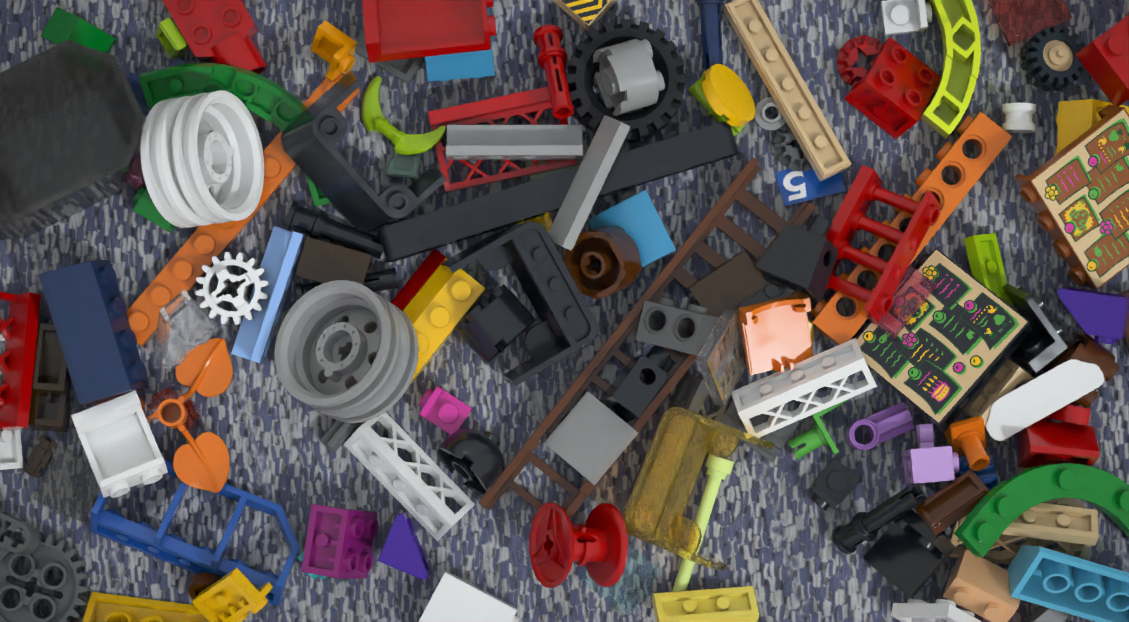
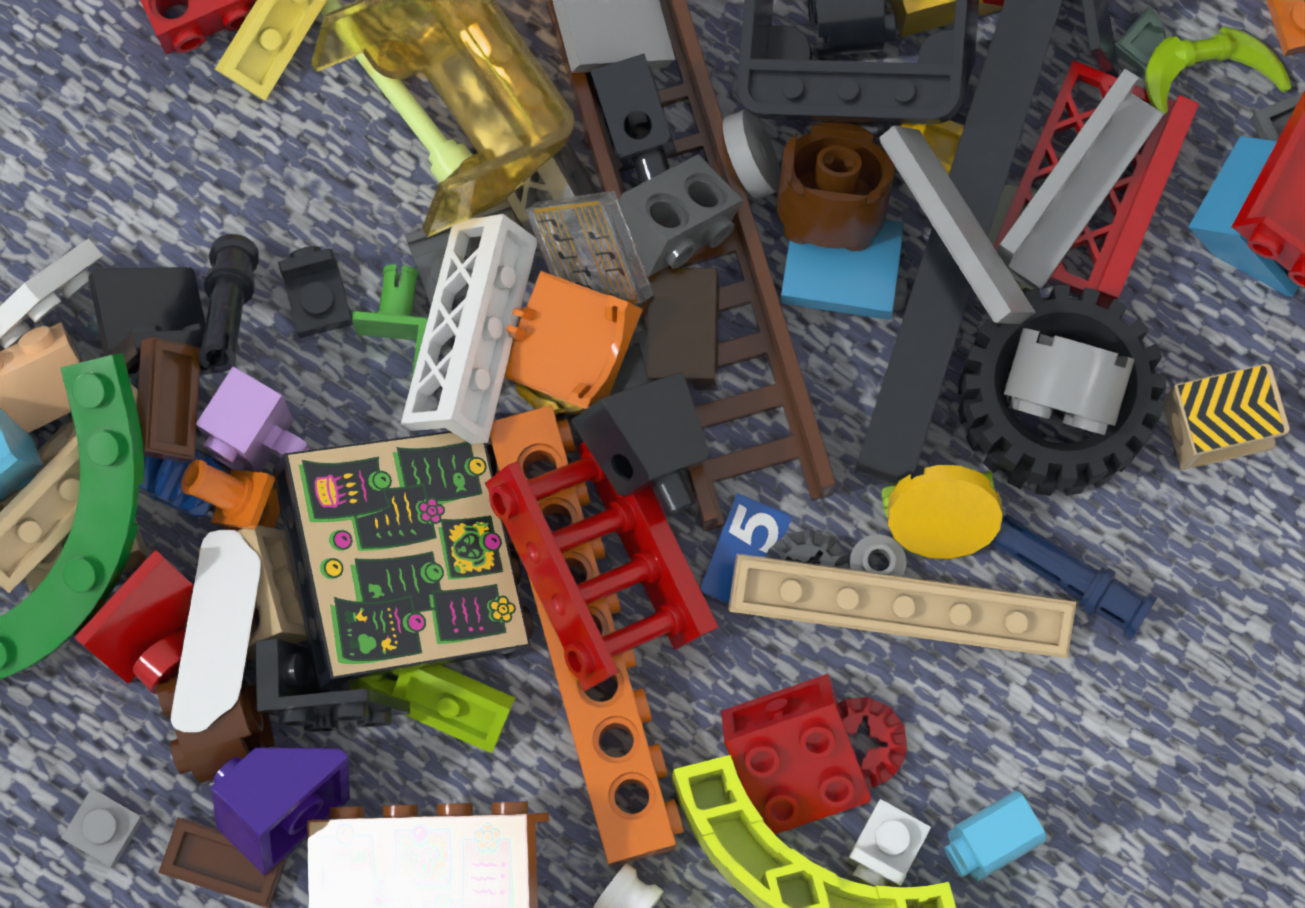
camera: 125 degrees right, 10 degrees down
(552, 60) = (1159, 311): red pin -> none
(613, 315) = (751, 154): none -> light grey piece
(881, 426) = (345, 407): medium lavender piece -> none
(907, 299) = (486, 546): clear pink tile -> none

